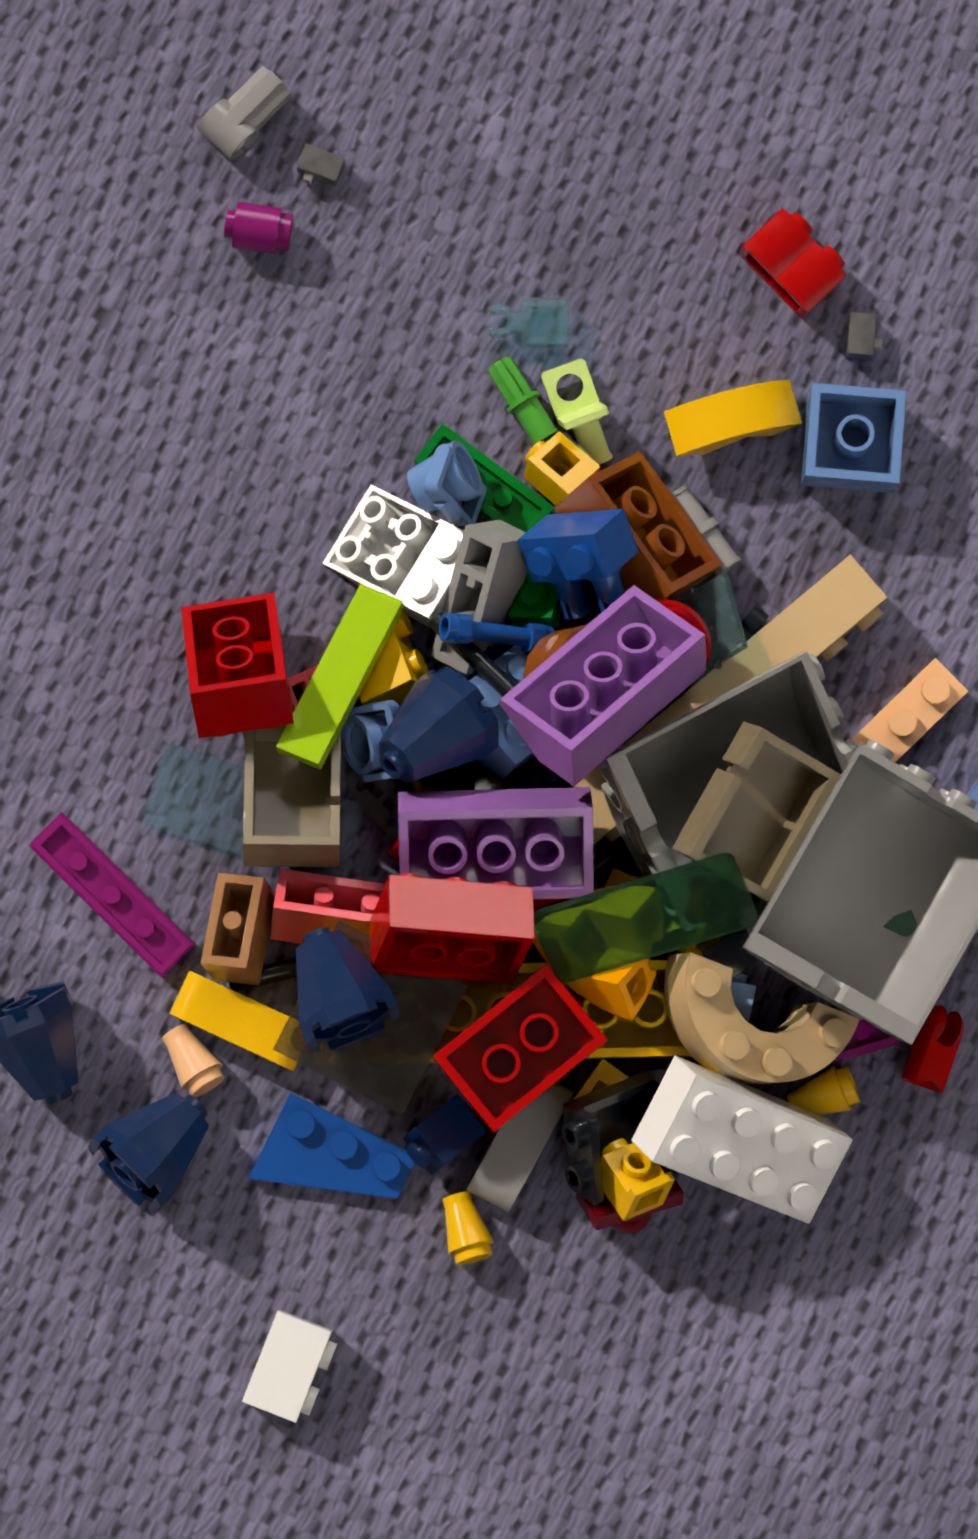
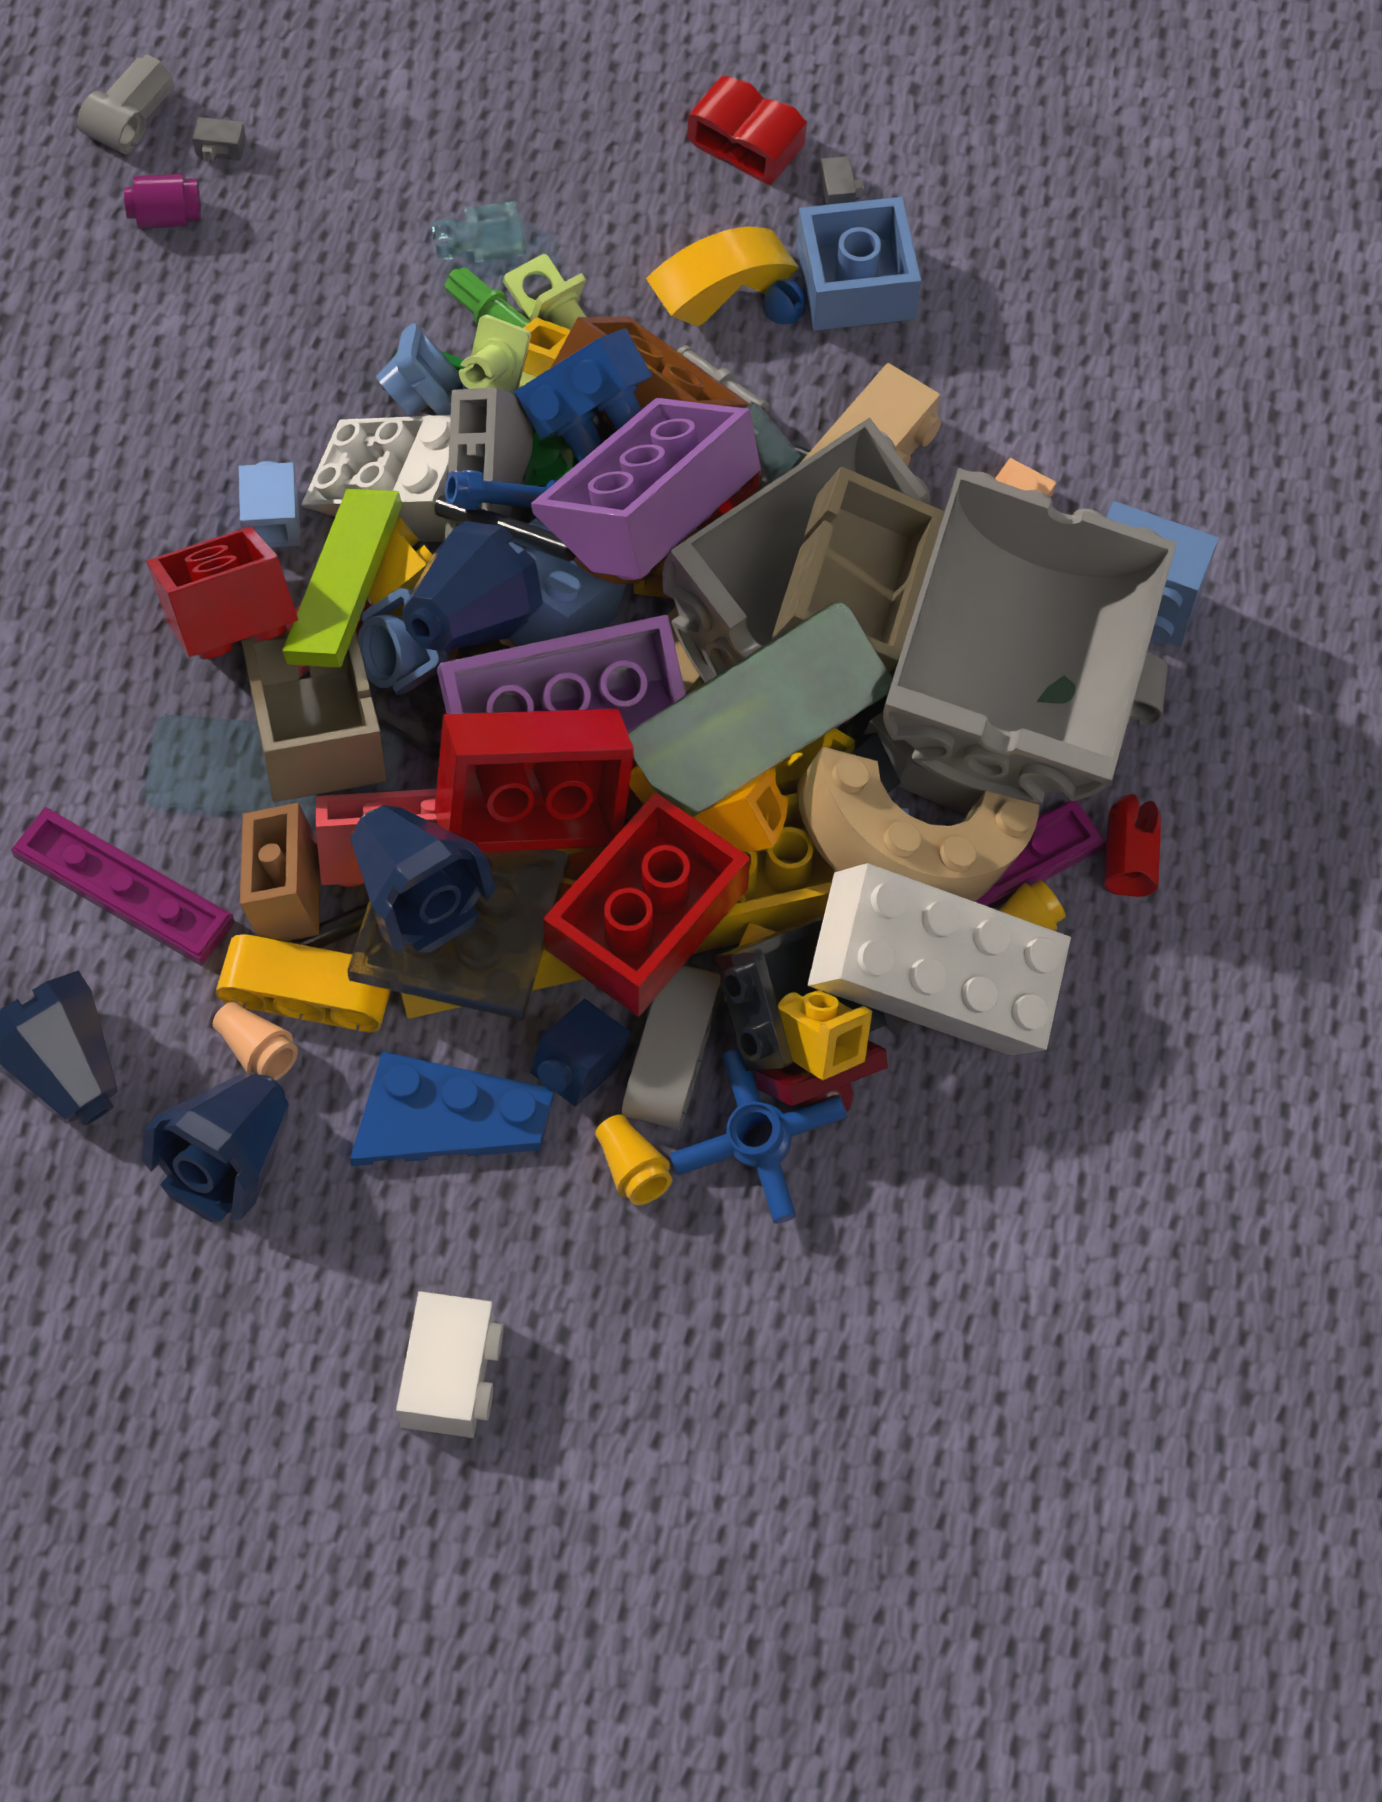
camera: 10 degrees left, 20 degrees down
(294, 565) = (270, 502): none -> light blue brick
(510, 494) = (497, 356): none -> yellowish green bracket
(549, 1238) = (769, 1155): none -> blue bar
(775, 456) = (780, 306): none -> blue hinge

